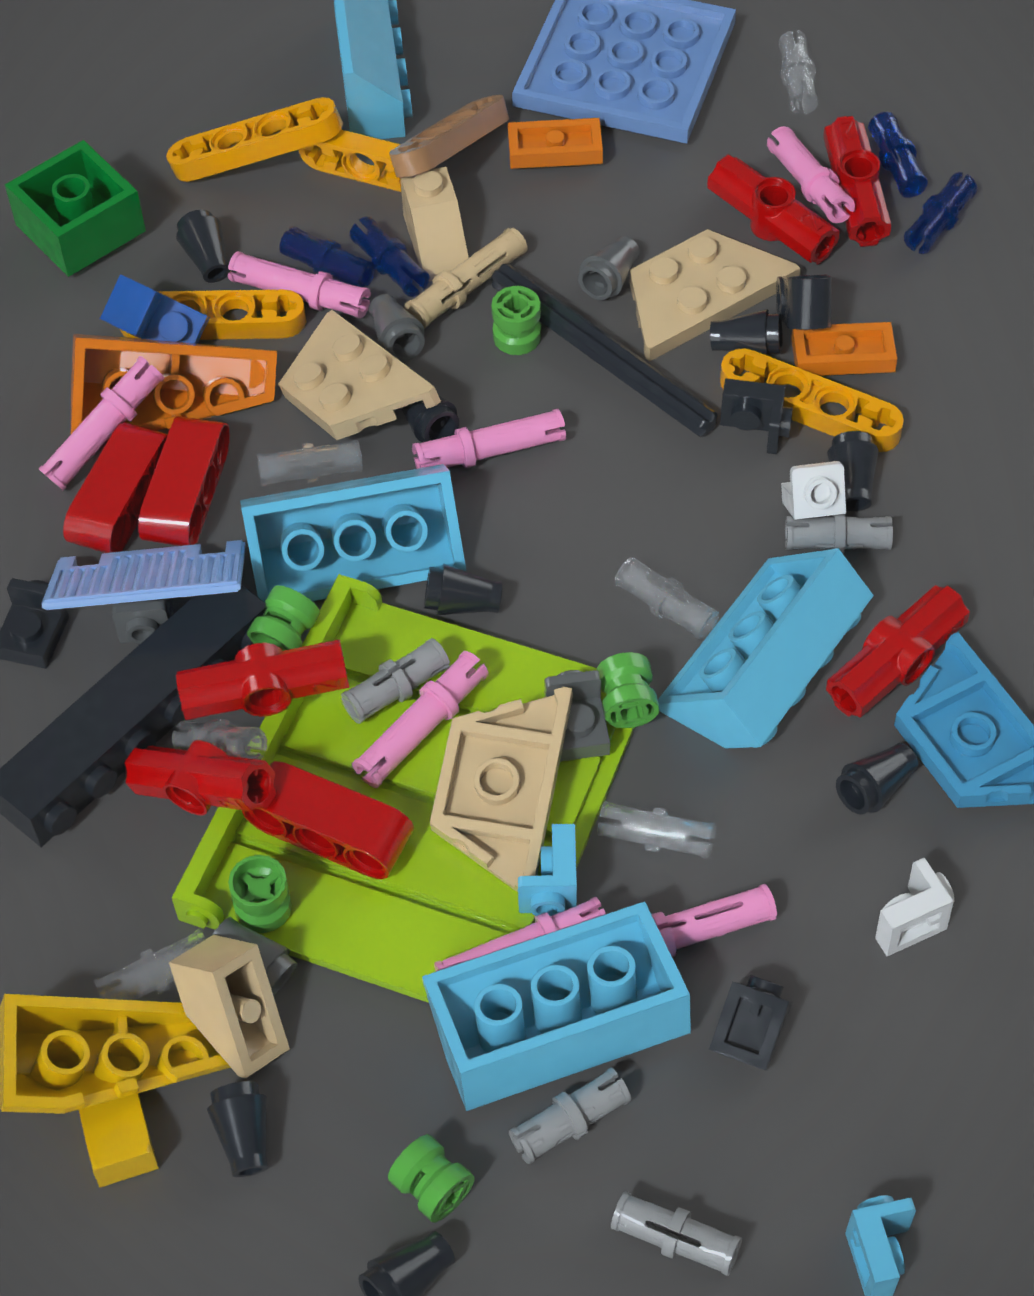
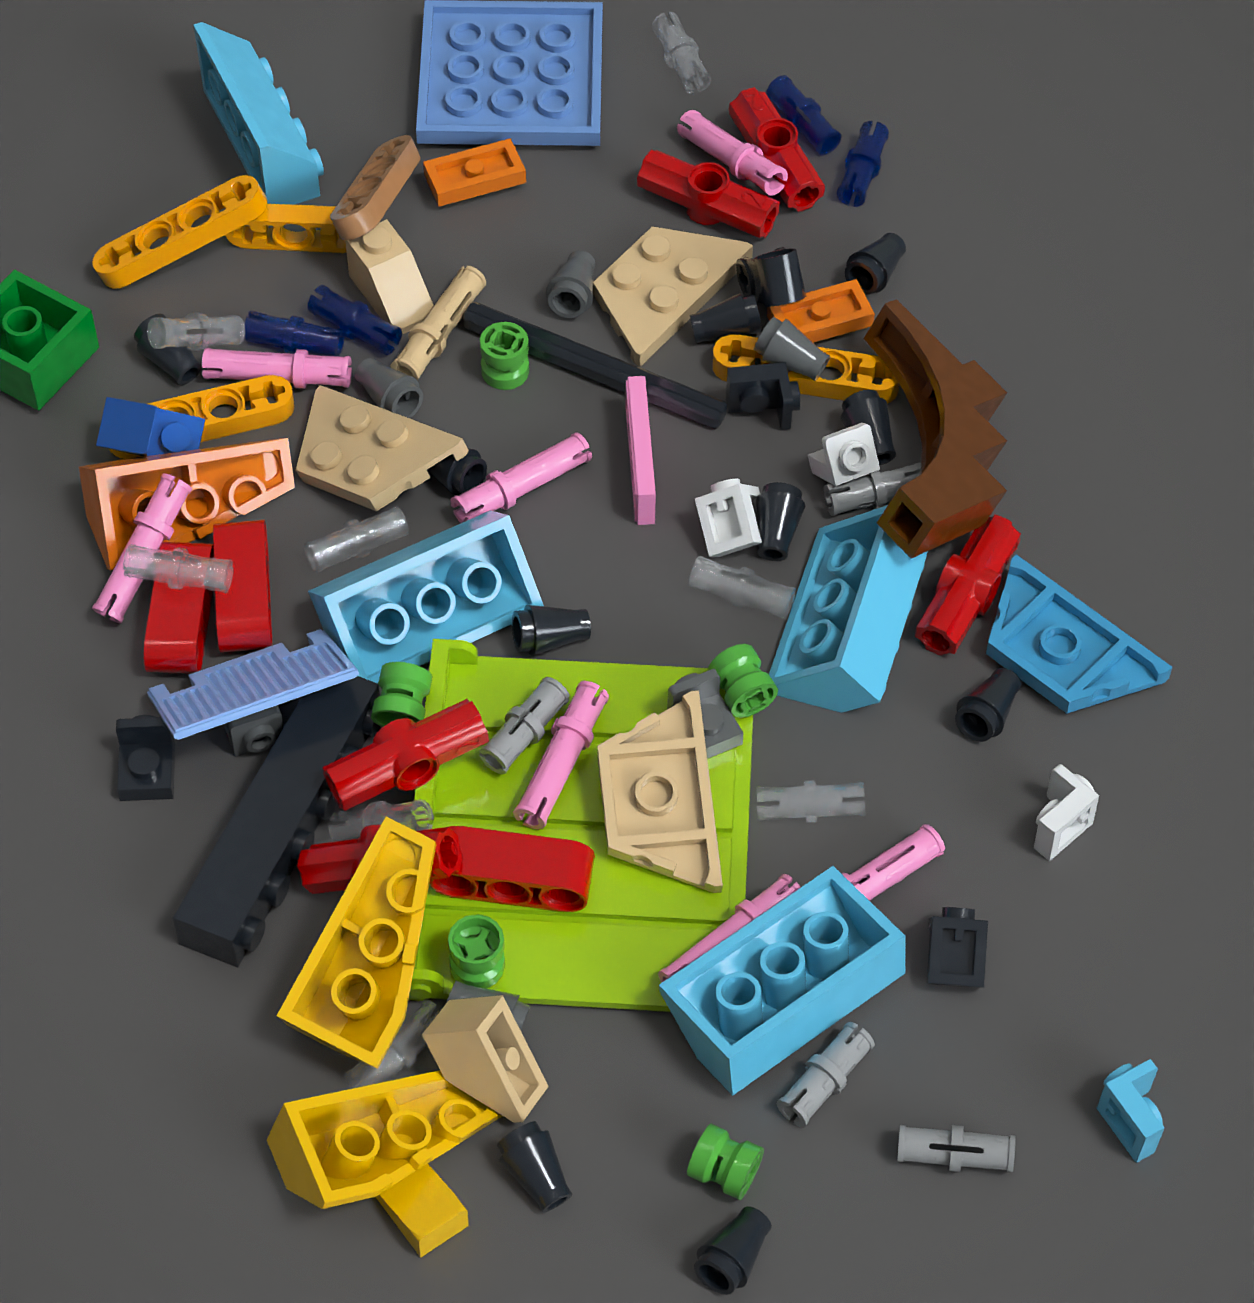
camera: 20 degrees left, 0 degrees up
(120, 448) = (178, 568): none -> clear pin
(136, 874) = (364, 962): none -> yellow wedge
(258, 238) = (172, 331): none -> clear pin
(557, 885) = (742, 863): medium azure bracket -> none
(613, 440) = (640, 450): none -> bright pink tile
(676, 525) = (728, 517): none -> white bracket
(727, 538) = (778, 517): none -> black cone
(791, 366) = (786, 343): none -> dark grey cone
(917, 311) = (875, 263): none -> black cone
(935, 504) = (957, 440): none -> reddish brown arch

